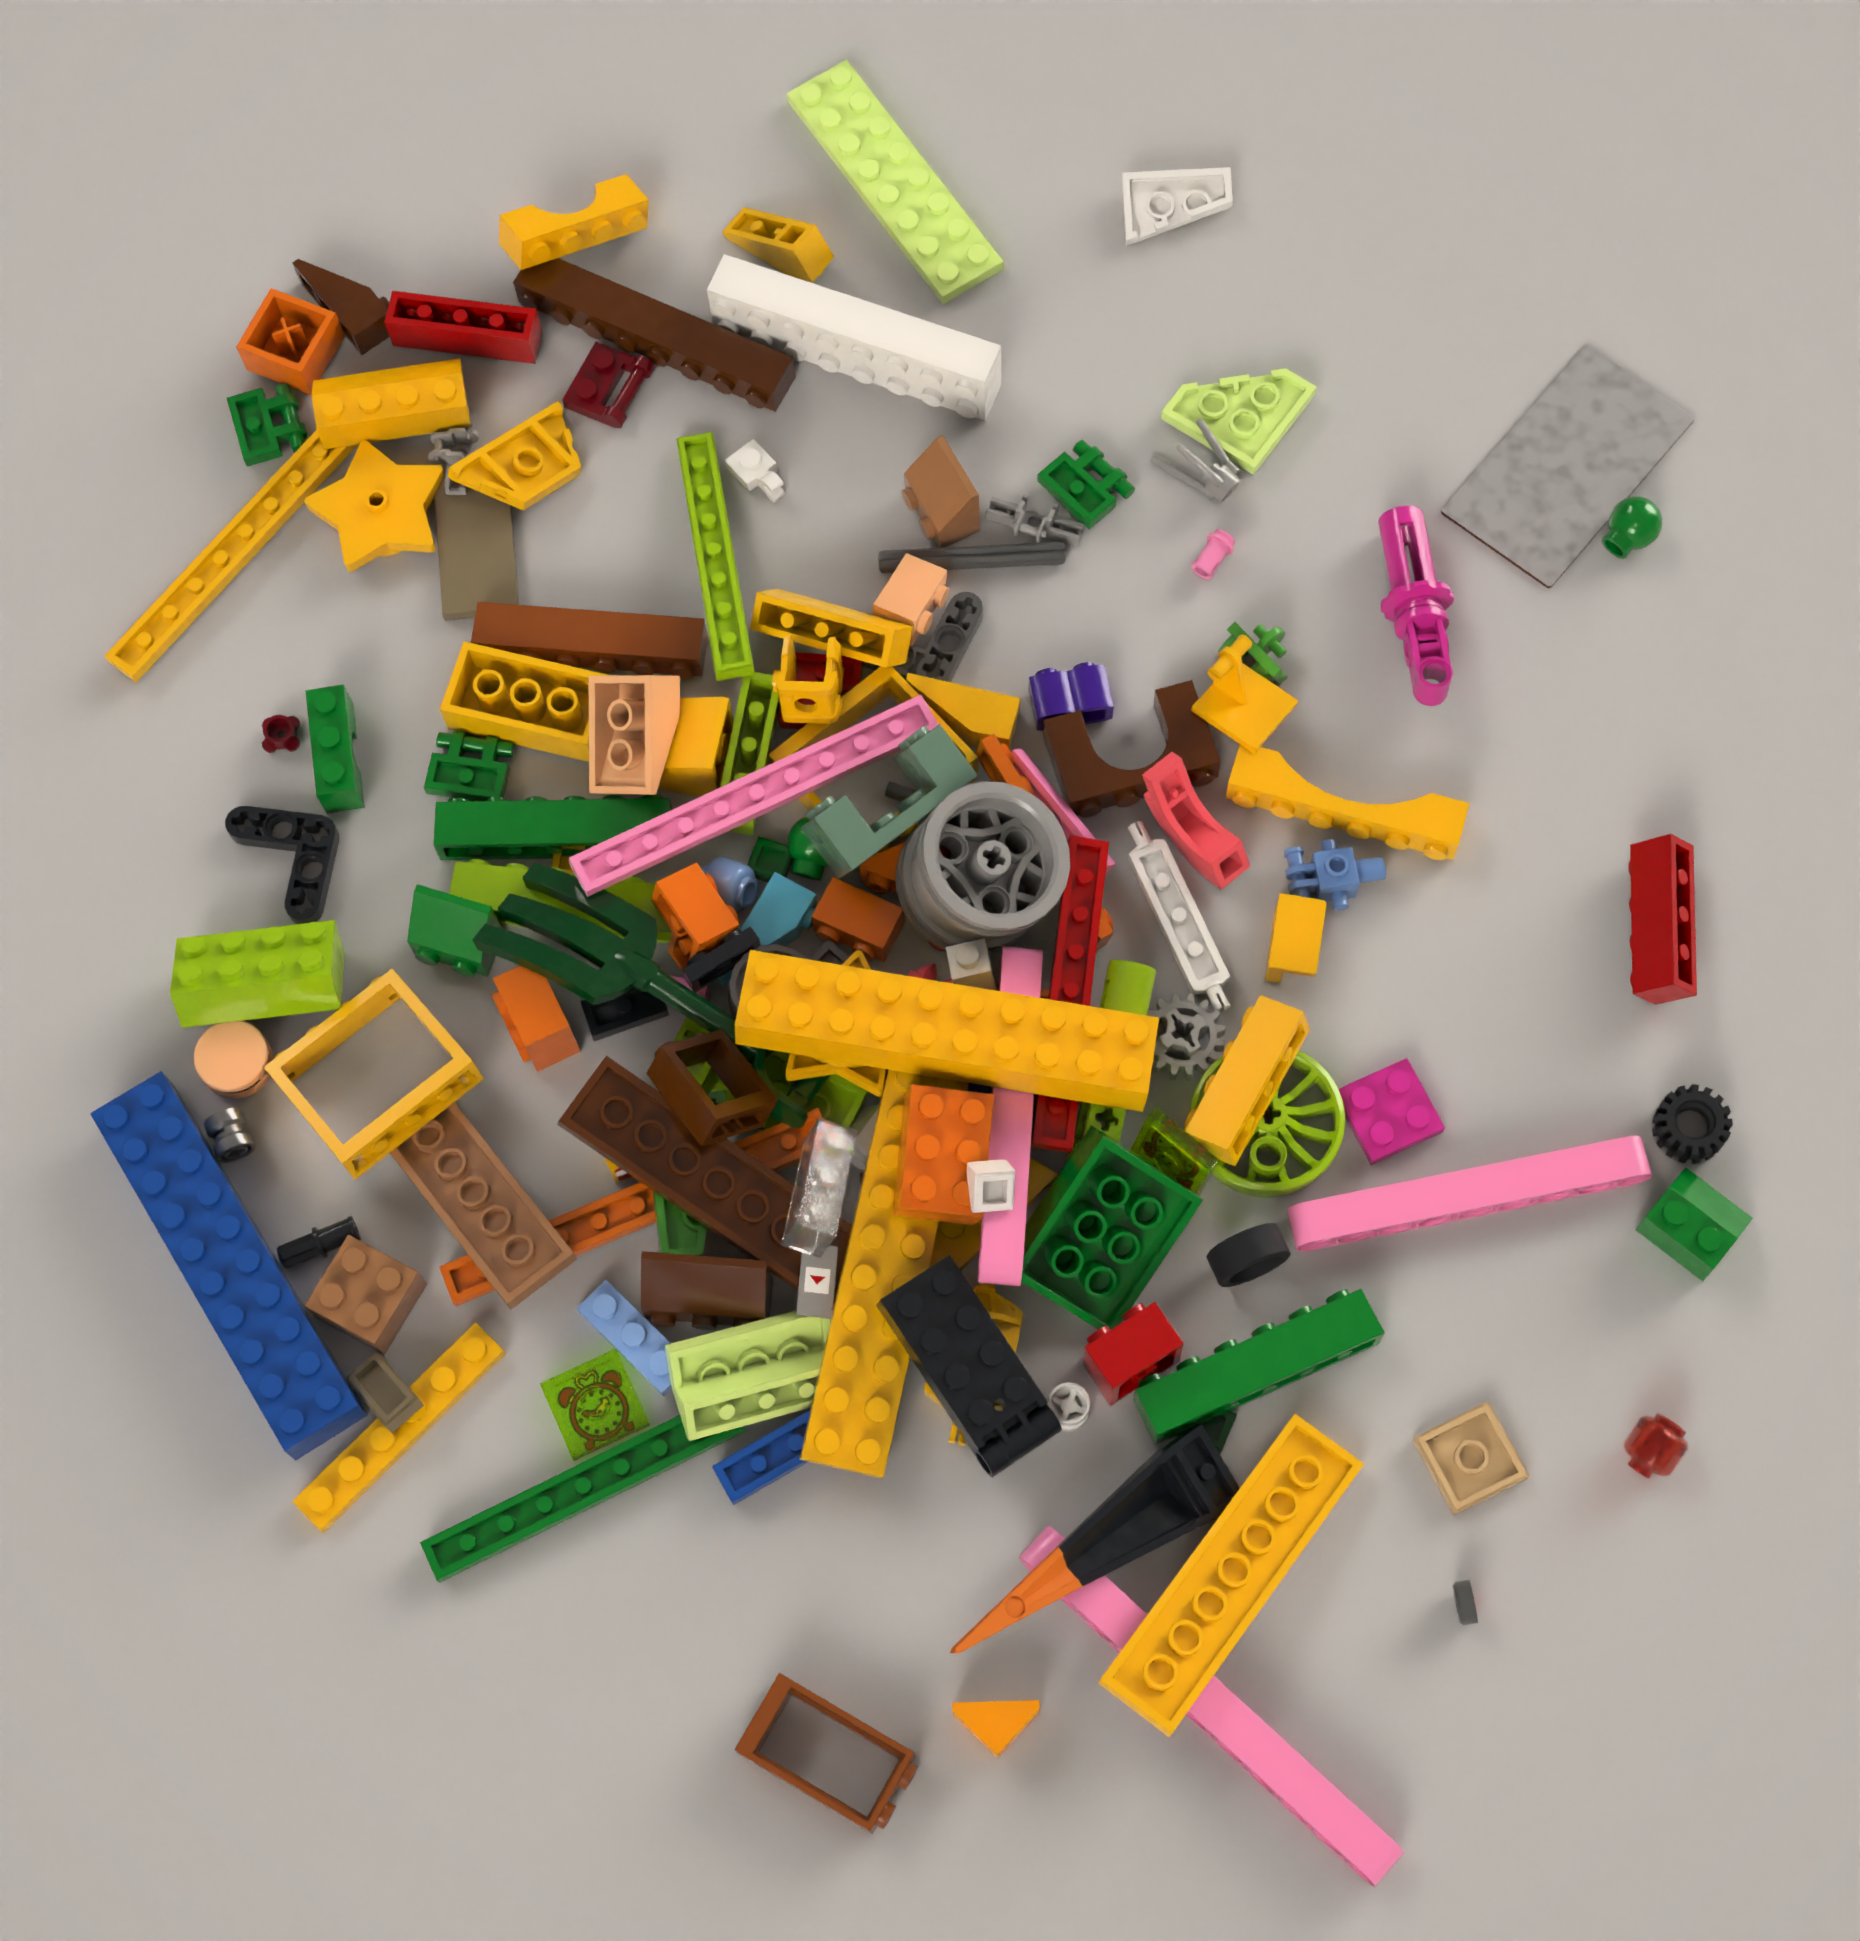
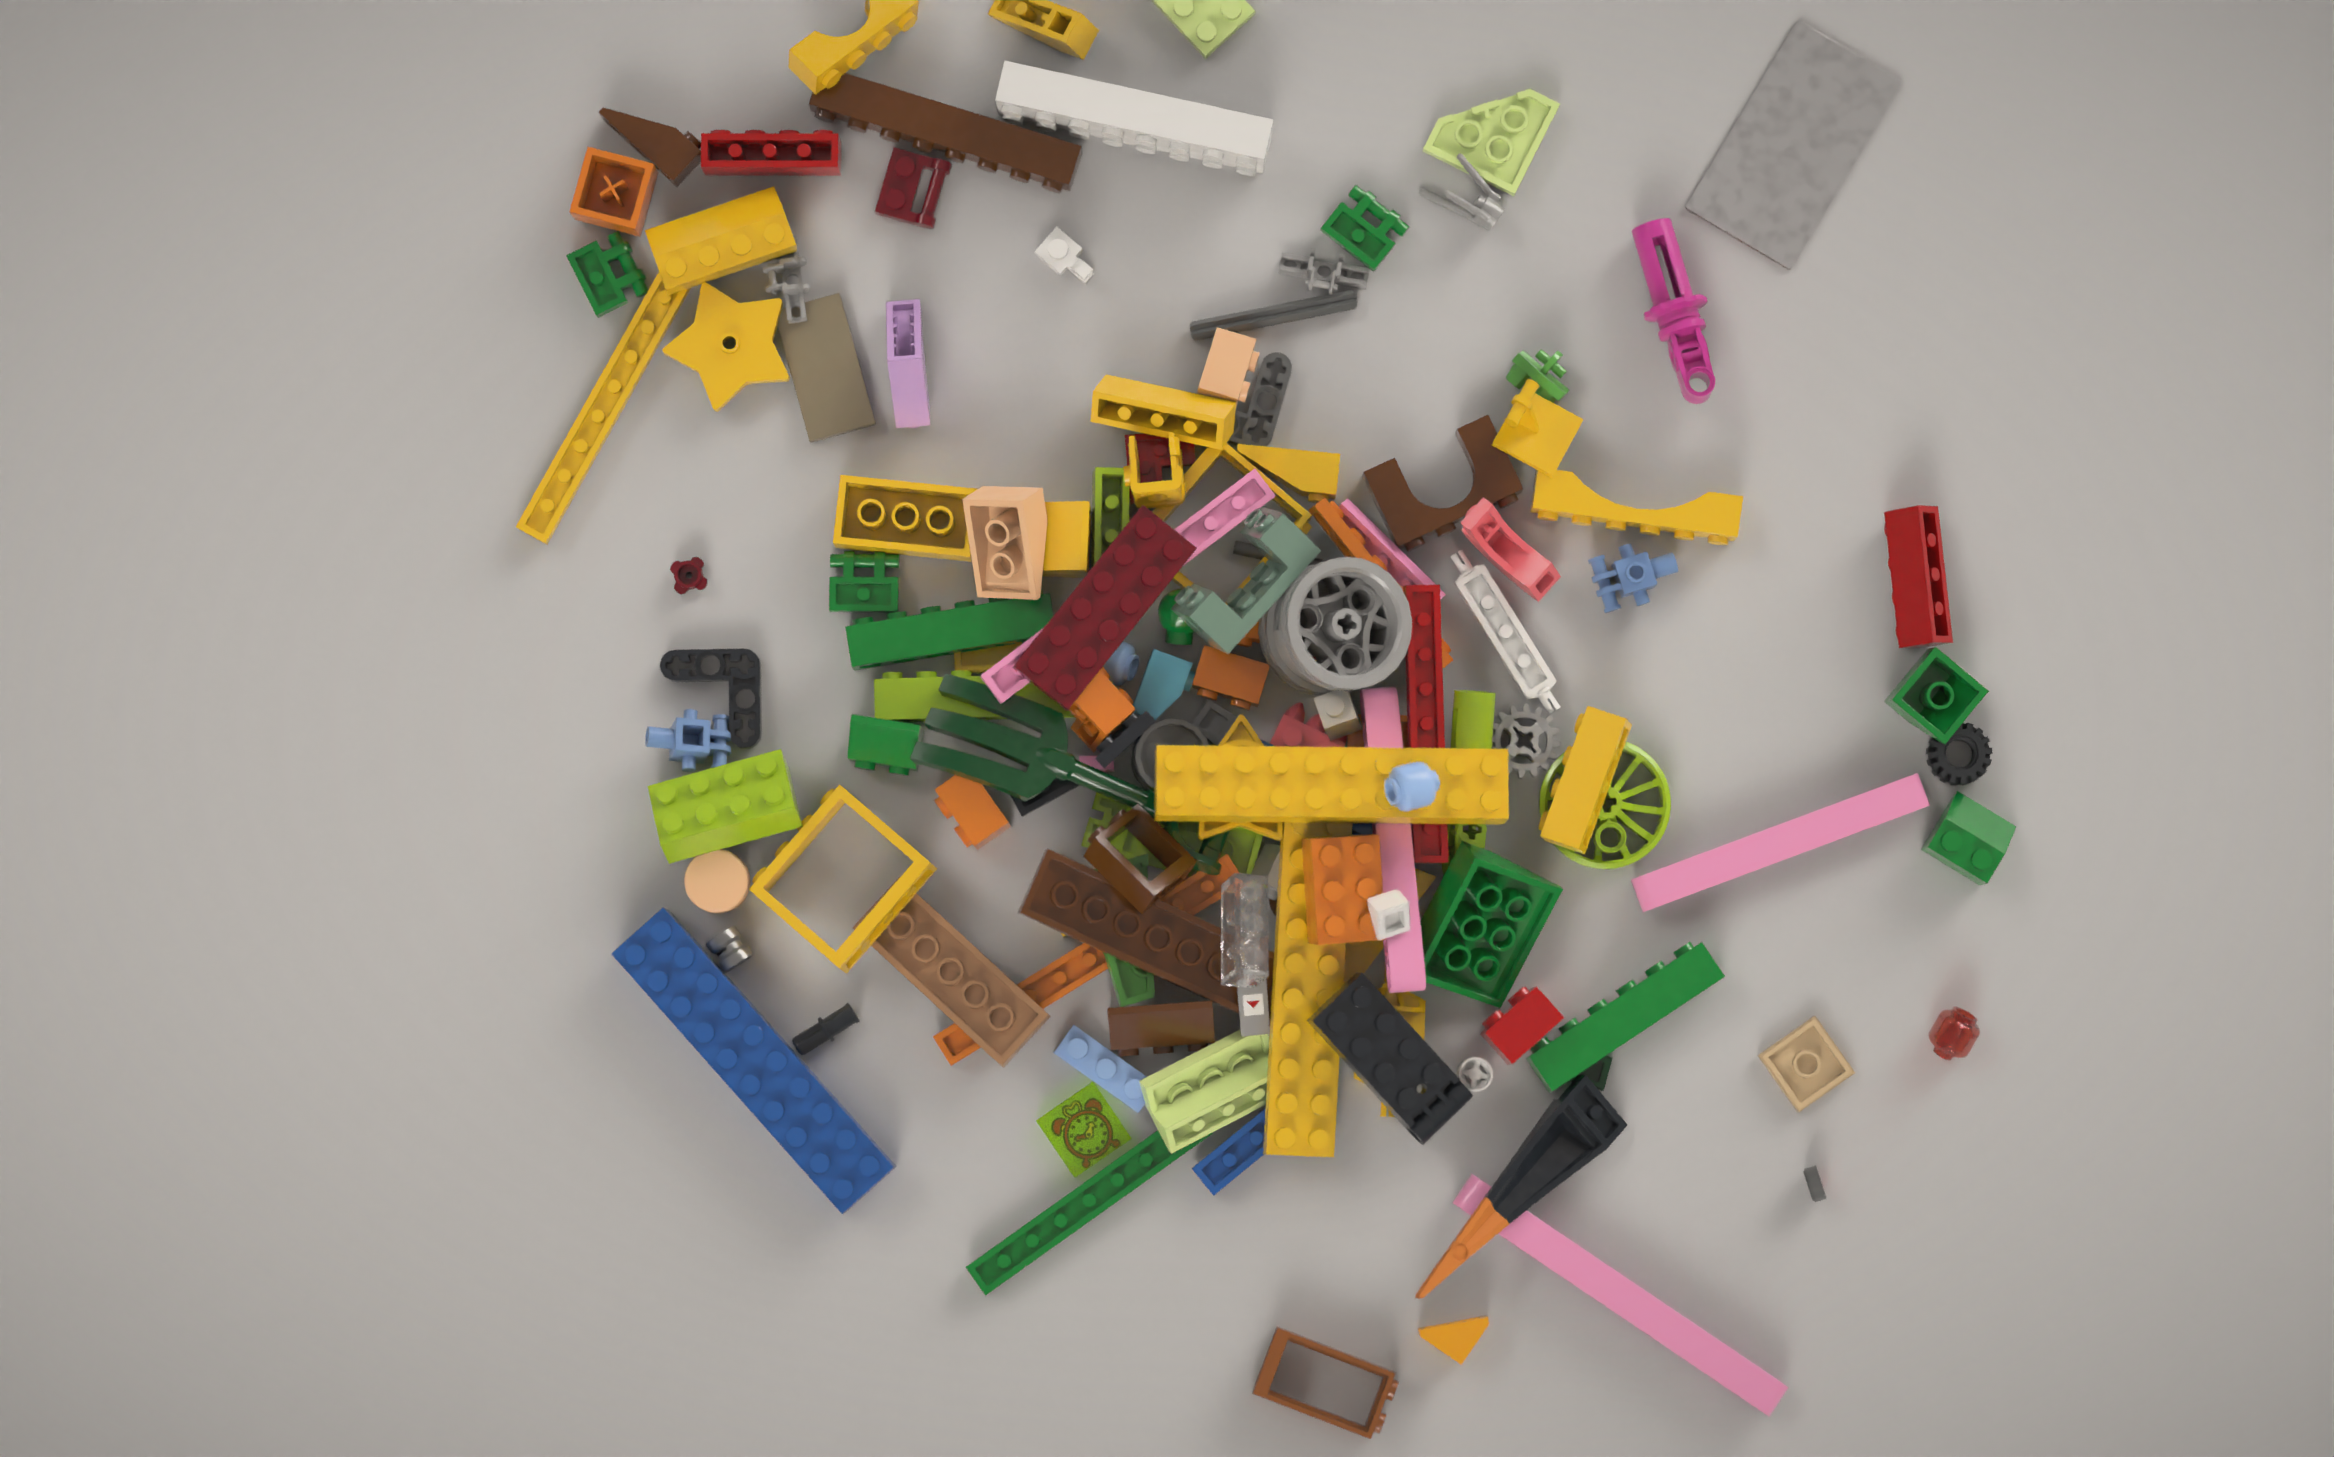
camera: 10 degrees left, 15 degrees up
(240, 900) = (691, 738): none -> medium blue piece
(331, 736) = (742, 585): green arch -> none
(366, 1294) = (876, 1069): medium nougat brick -> none
(380, 1449) = (926, 1173): yellow plate -> none
(384, 1391) = (909, 1148): dark tan tile -> none
(523, 461) = (854, 281): yellow wing -> none
(560, 548) = (907, 363): none -> lavender arch
(595, 638) = (947, 447): dark orange brick -> none
(715, 557) = (1045, 353): lime tile -> none
(722, 808) = (1104, 607): none -> dark red plate
(769, 858) = (1146, 633): green tile -> none
(942, 495) = (1238, 265): medium nougat slope -> none
(1037, 1032) = (1411, 786): none -> light blue head
(1069, 691) = (1382, 439): dark purple brick -> none
(1174, 1152) = (1531, 851): clear neon green tile -> none
(1218, 546) = (1488, 282): bright pink pin -> none
(1230, 1575) = (1627, 1192): yellow plate -> none
(1248, 1255) = (1605, 926): black tyre -> none
(1295, 937) = (1608, 638): yellow panel -> none
(1390, 1111) = (1705, 778): dark pink plate -> none
(1632, 526) = (1857, 202): green piece -> none
(1671, 1050) = (1936, 695): none -> green slope

